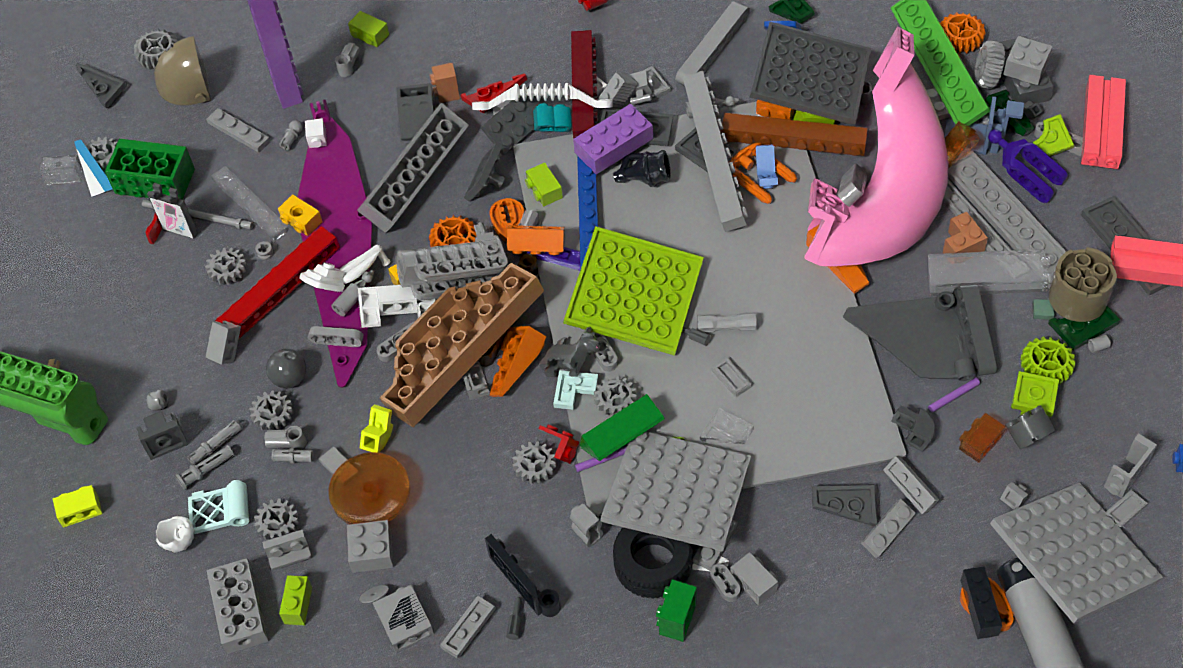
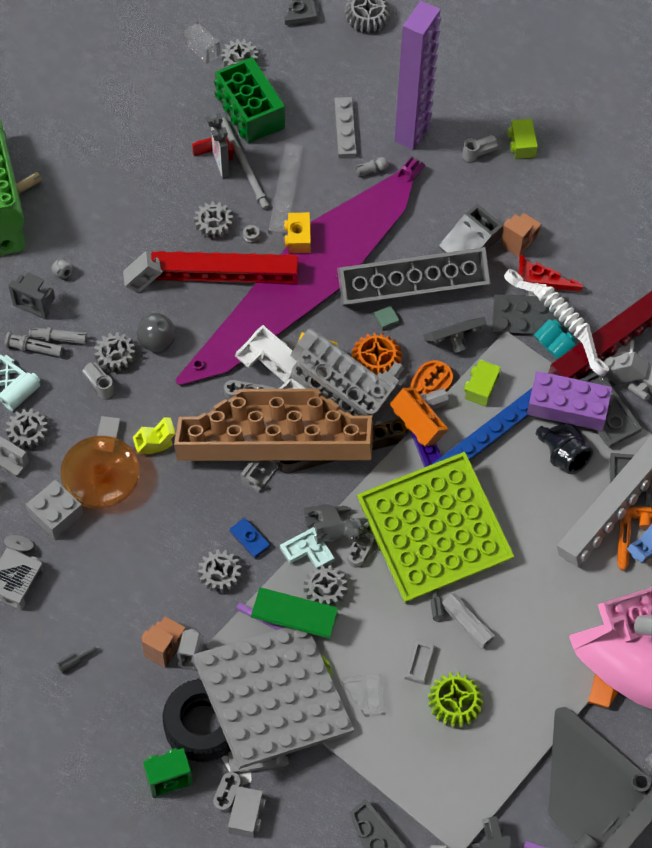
camera: 45 degrees right, 5 degrees up
(94, 175) = (218, 61): dark azure sticker -> none
(182, 75) = (356, 50): dark tan brick -> none
(292, 455) = (89, 396): light grey pin -> none
(315, 133) = (383, 182): white brick -> none
(333, 279) = (255, 299): white piece -> none
(343, 337) = (212, 344): light grey beam -> none
(350, 294) = (248, 326): light grey wheel -> none
(426, 211) = (386, 317): none -> sand green tile
(467, 627) = (42, 629): light grey plate -> none
(508, 566) = (109, 624): black hinge -> none
(519, 350) = (314, 485): orange wedge -> none
(523, 424) = (249, 538): none -> blue plate
(559, 541) = (162, 641): none -> nougat brick
(567, 446) = (250, 584): red bracket -> none
(788, 381) = (471, 694): none -> lime gear

